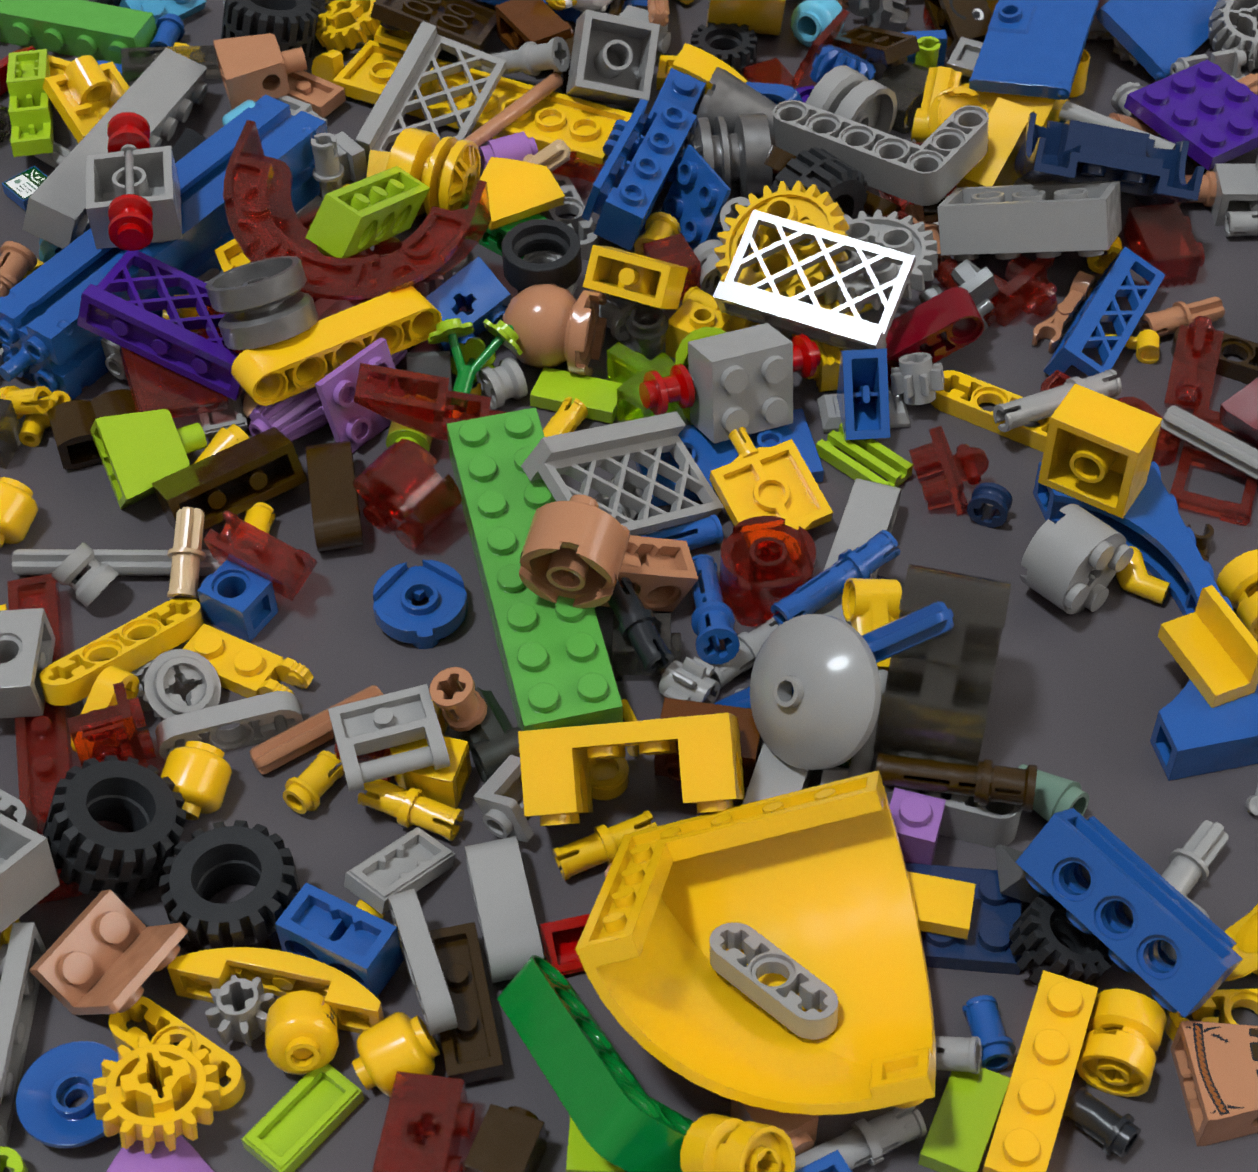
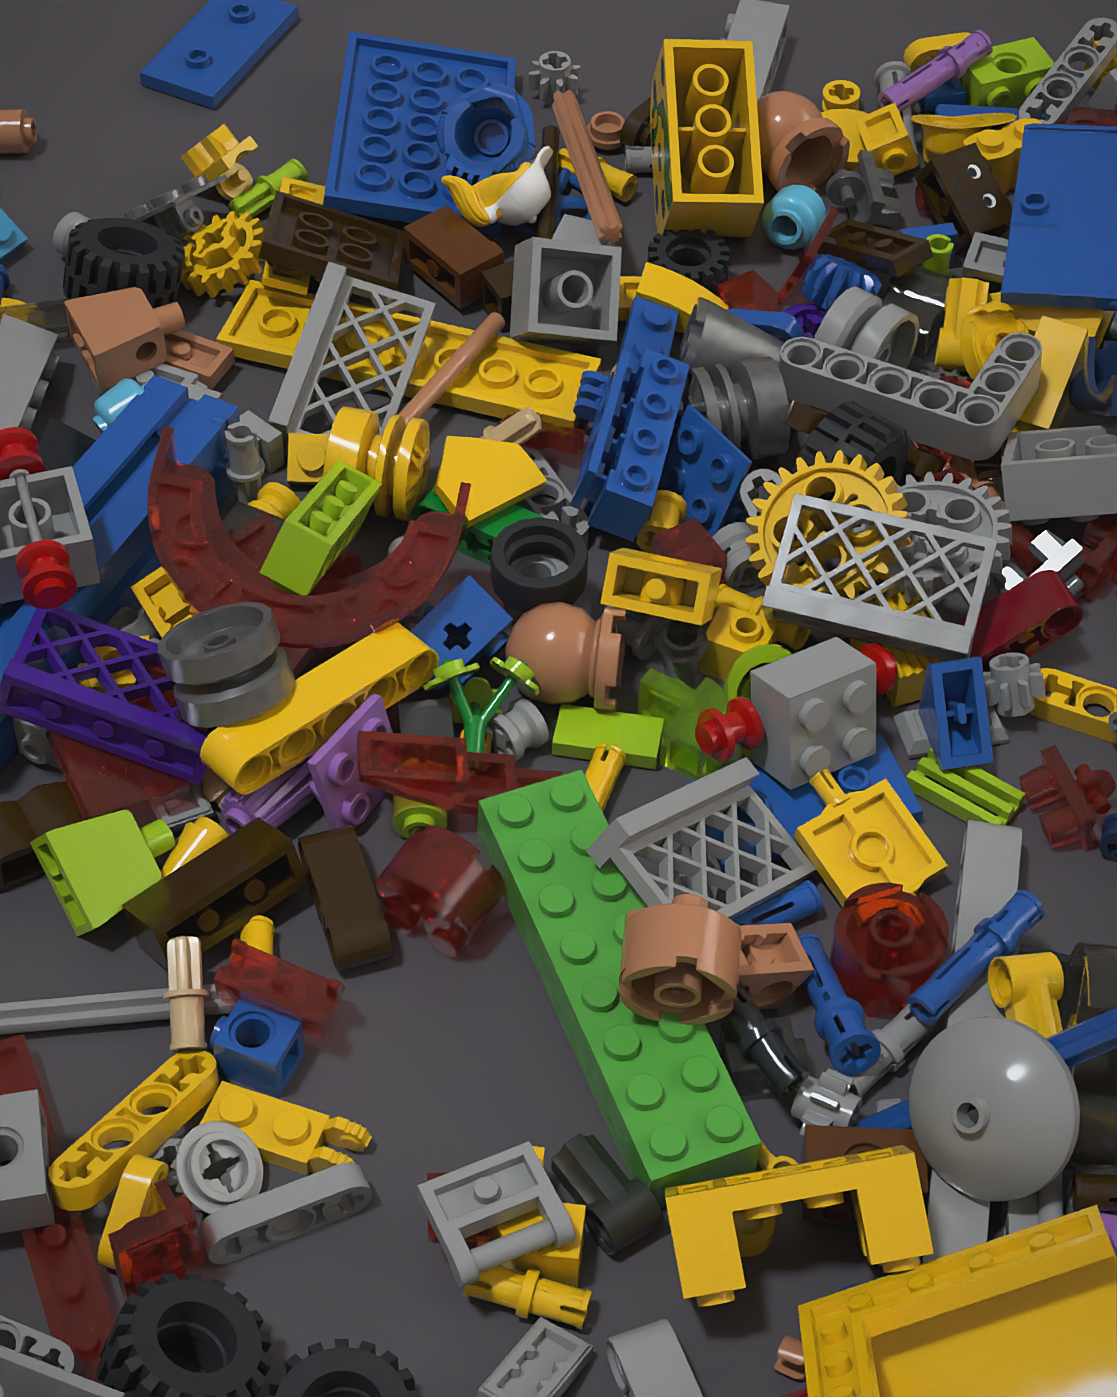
camera: 10 degrees left, 0 degrees up
(93, 581) = (63, 1033): light grey wheel -> none
(199, 776) = (267, 1279): yellow head -> none
(301, 737) = (386, 1207): nougat axle -> none
(304, 791) = (397, 1284): yellow pin -> none
(328, 65) = (206, 319): yellow tile -> none
(425, 623) = (473, 1055): blue plate -> none
(458, 699) = (565, 1154): nougat bush -> none
(502, 802) = (642, 1273): light grey bracket -> none
(511, 147) = (458, 418): medium lavender brick -> none
(534, 58) = (466, 295): light grey pin -> none
(598, 847) = (766, 1317): yellow pin -> none

